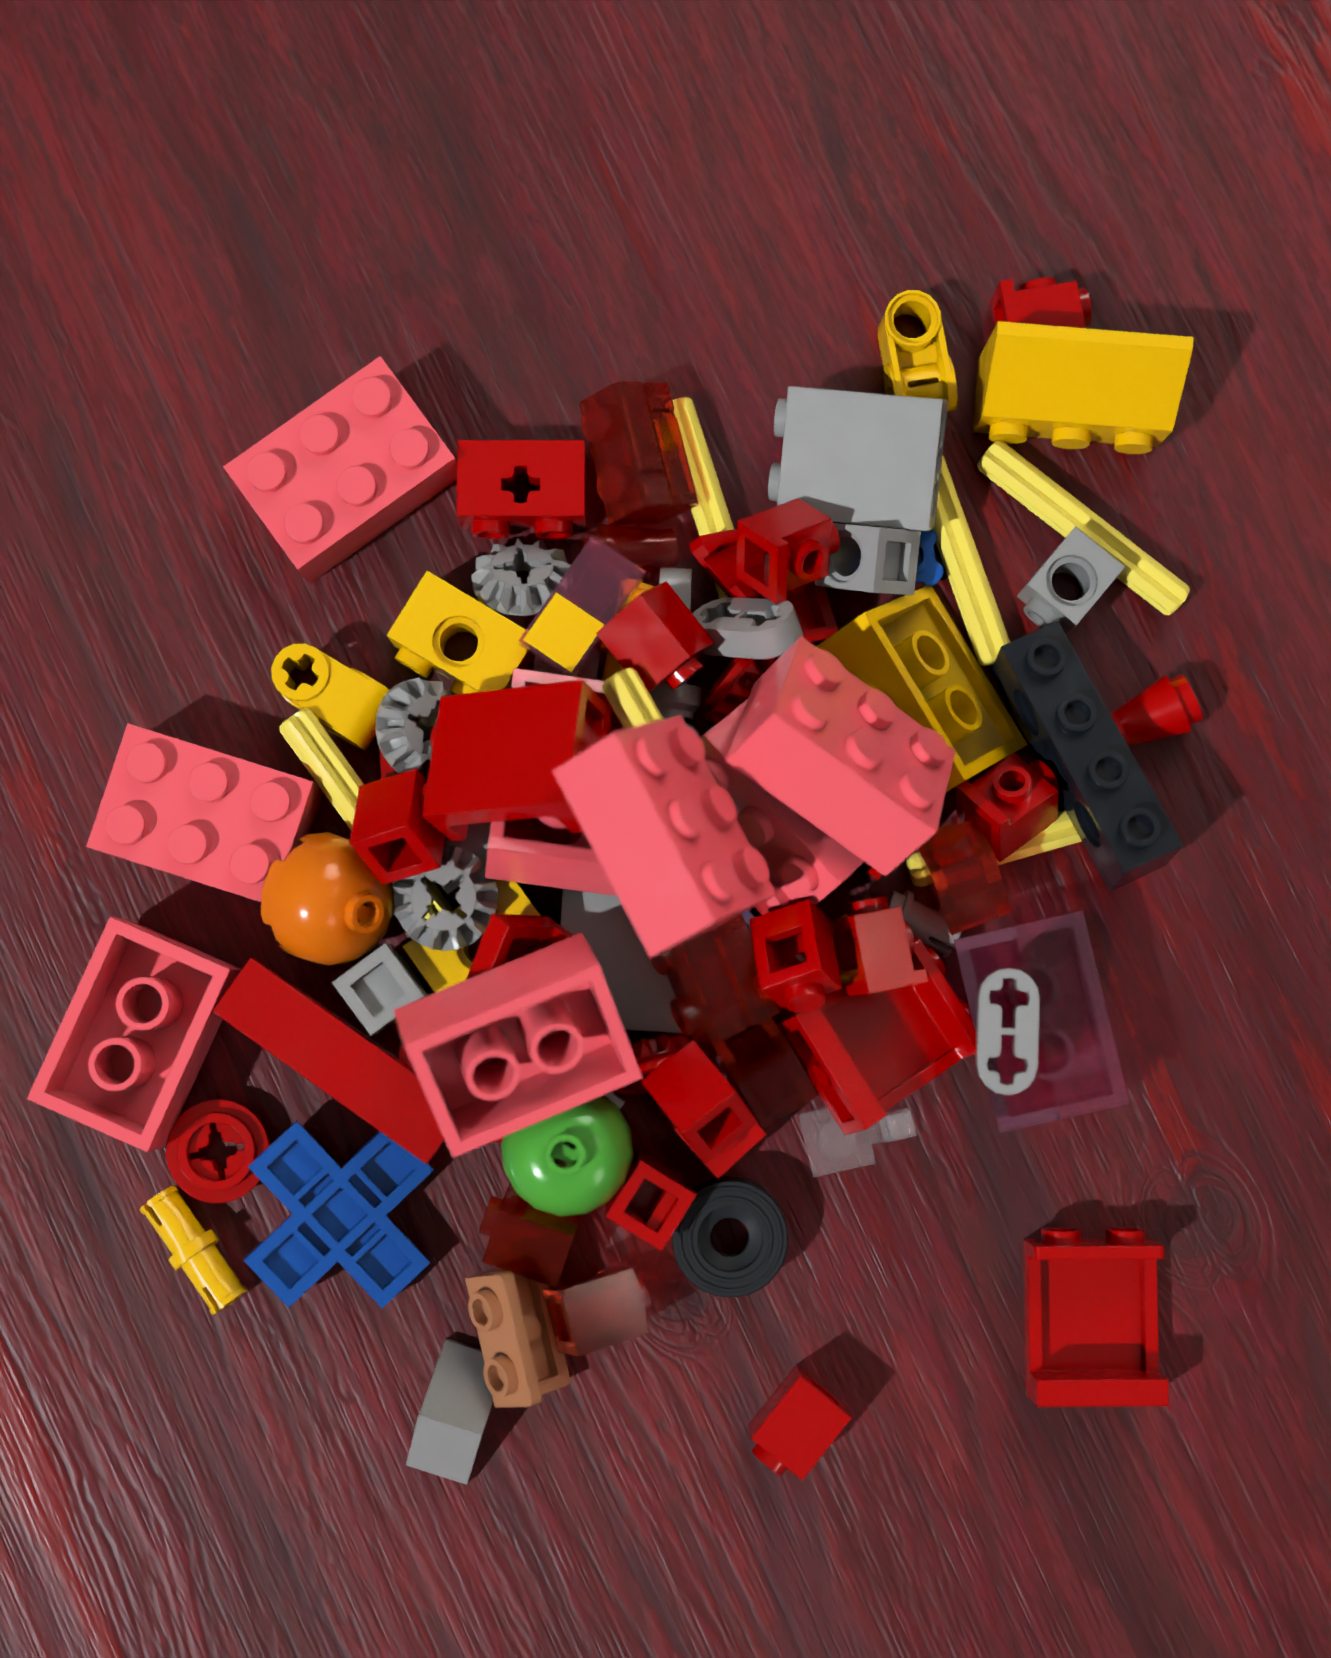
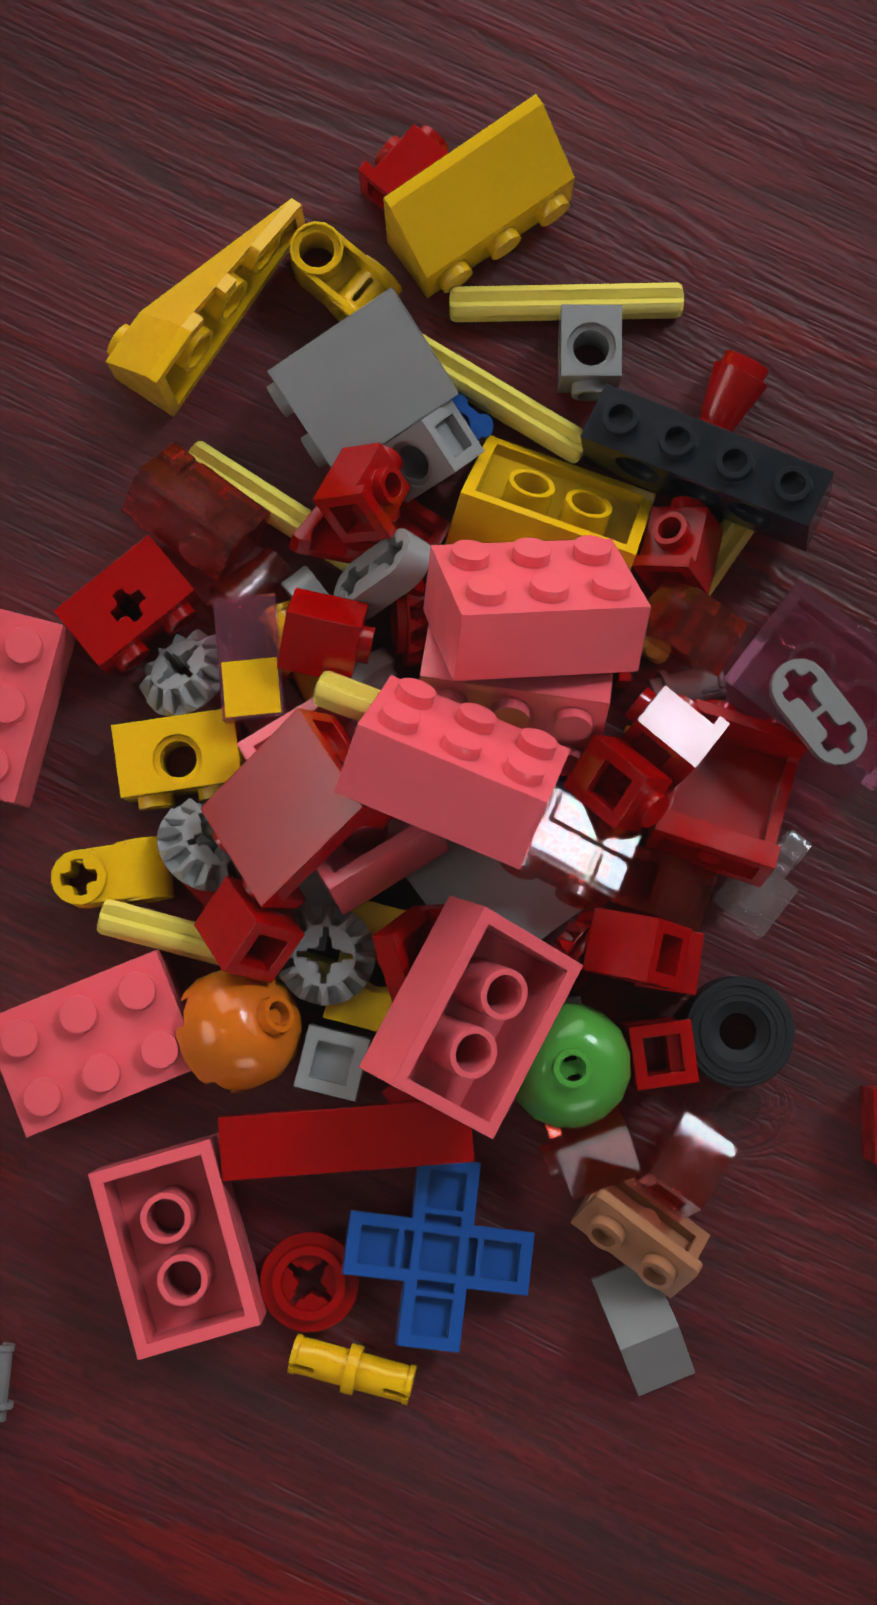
camera: 30 degrees left, 0 degrees up
(757, 297) = (188, 325): none -> yellow wedge

